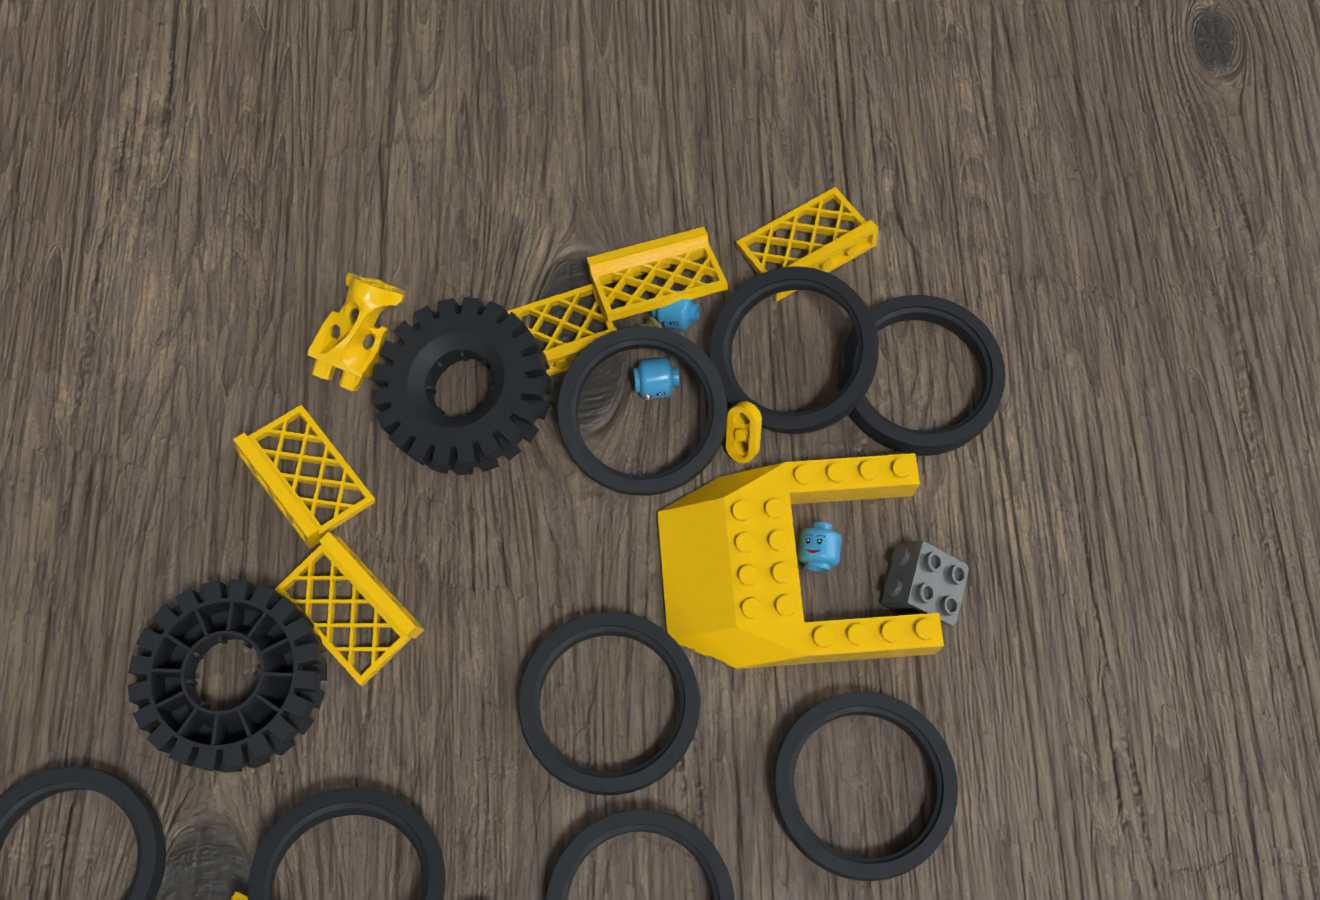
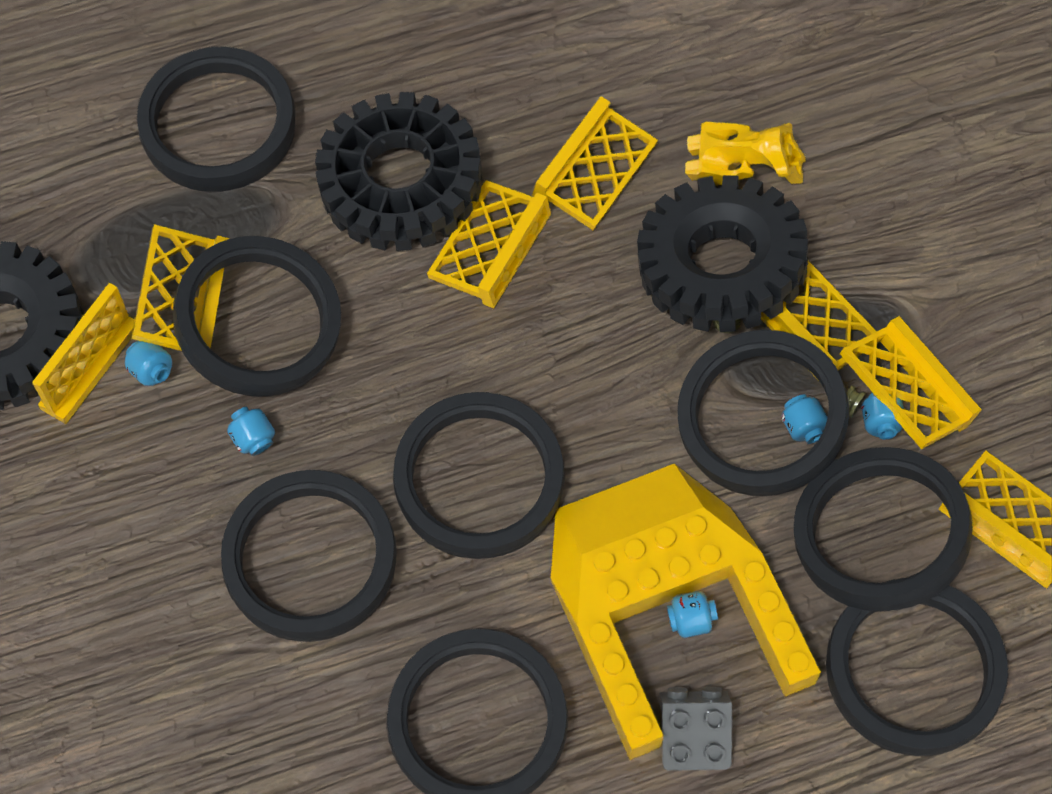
camera: 75 degrees right, 5 degrees down
(743, 425) = (779, 509): yellow plate -> none

